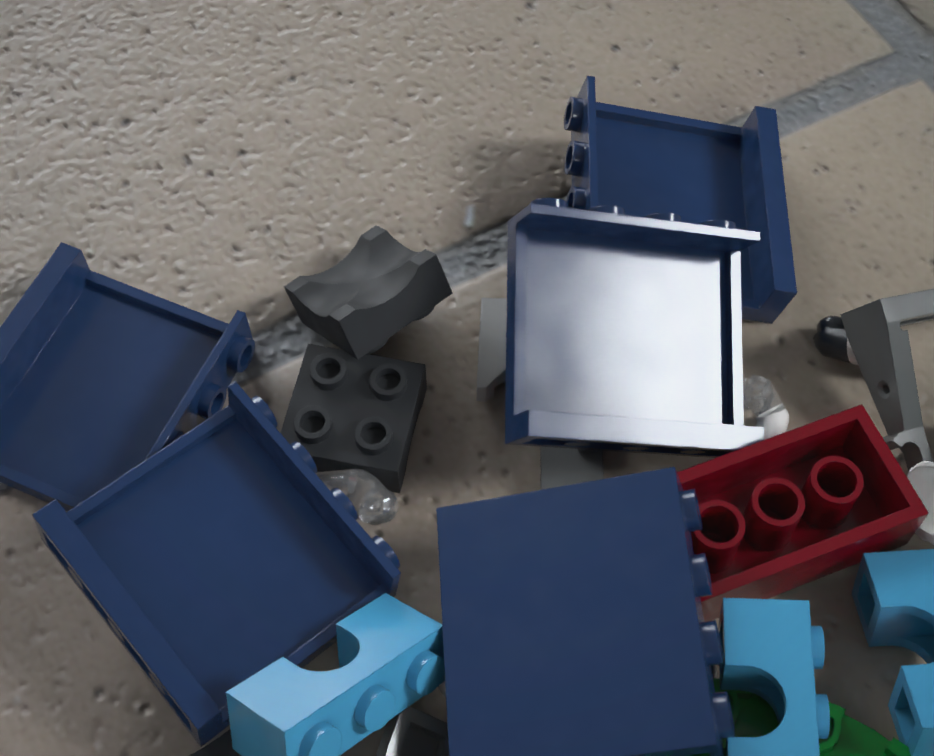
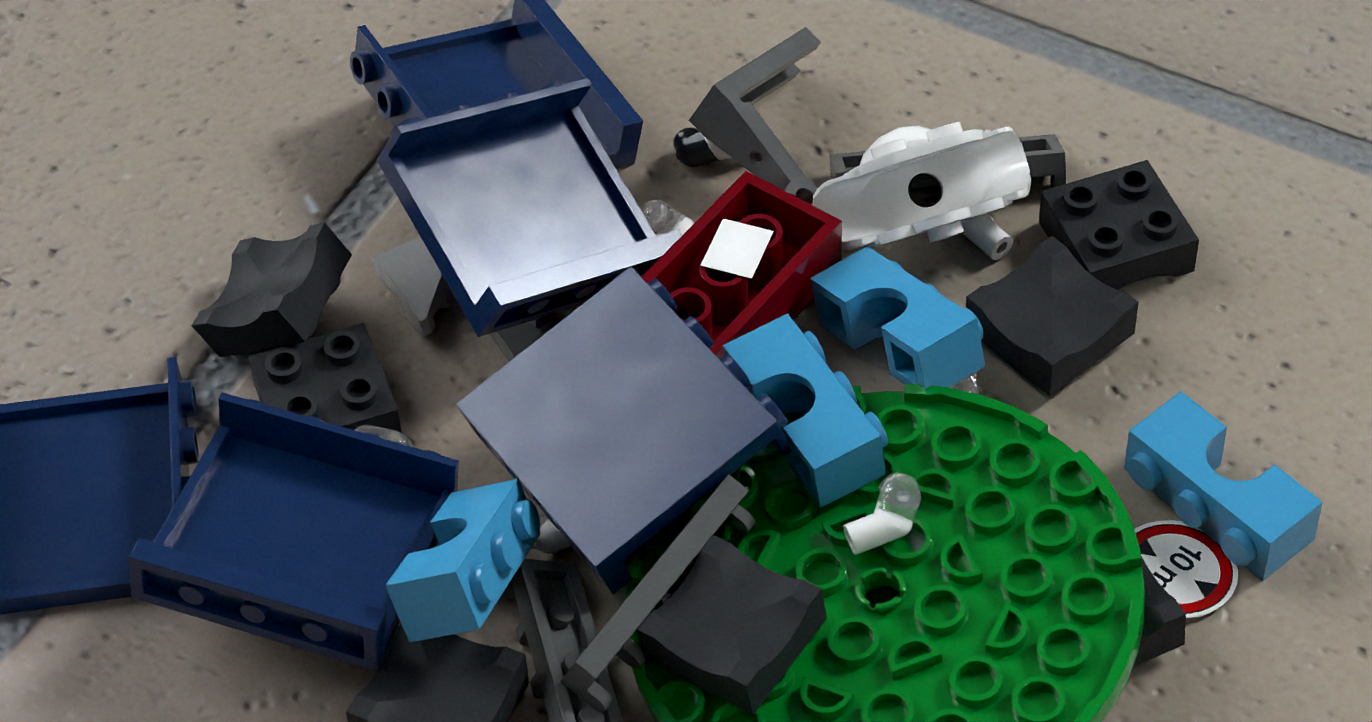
camera: 30 degrees left, 10 degrees down
(804, 487) = (737, 248): none -> white sticker

